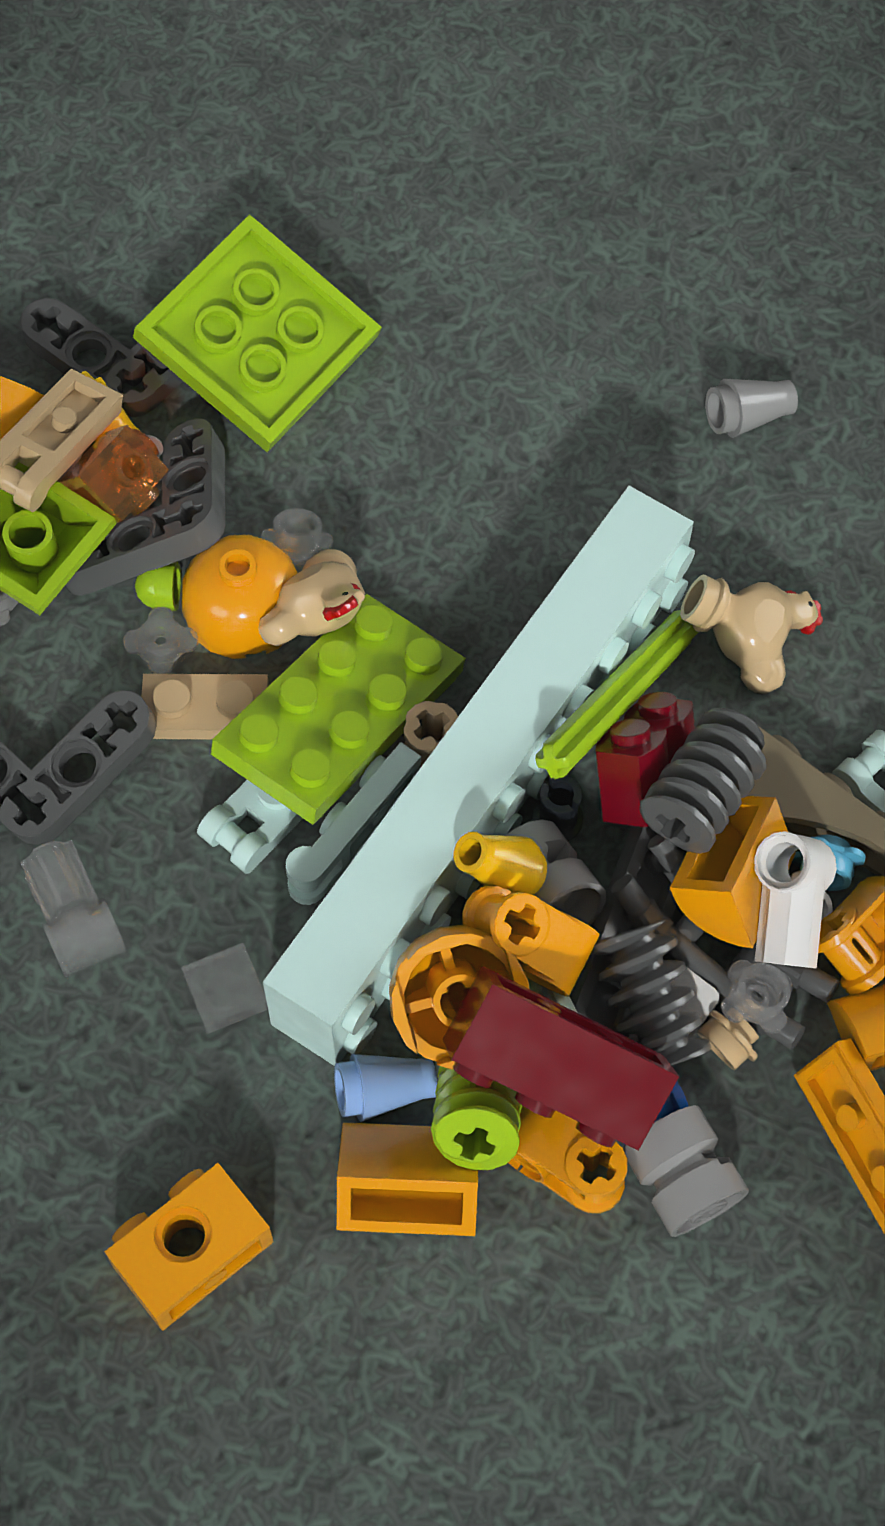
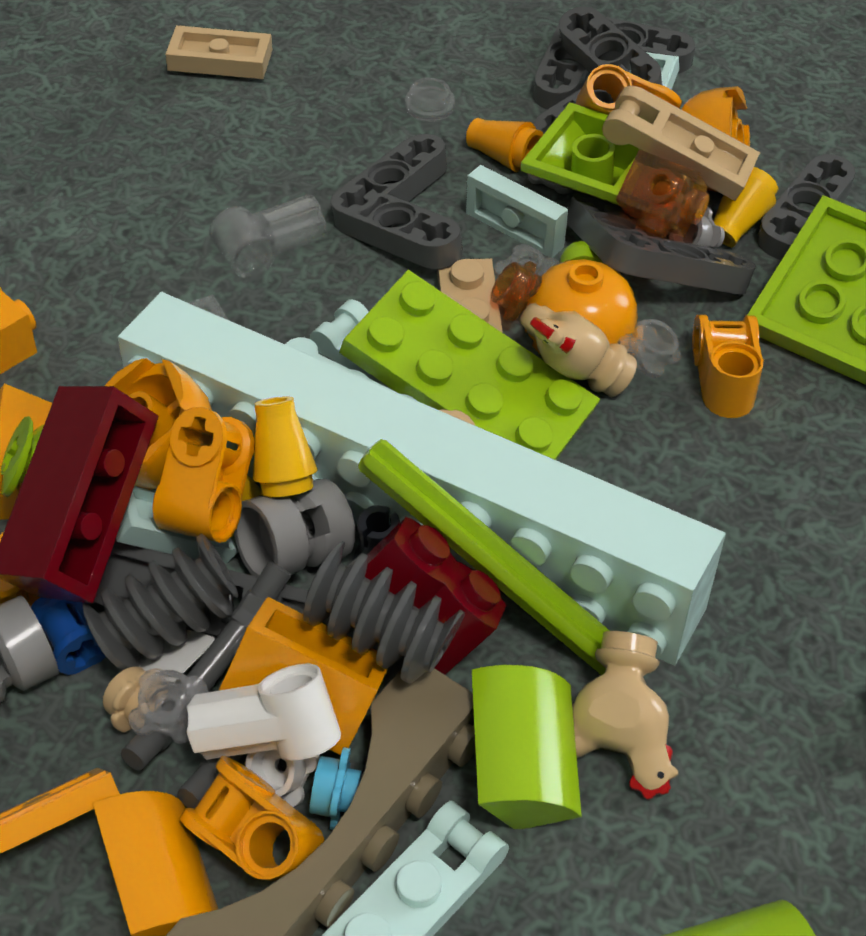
camera: 85 degrees right, 15 degrees down
(59, 651) = (516, 211): none -> light aqua plate
(205, 661) = (515, 287): none -> clear orange plate
(324, 468) = (728, 364): none -> light orange piece
(798, 696) = (525, 745): none -> lime brick

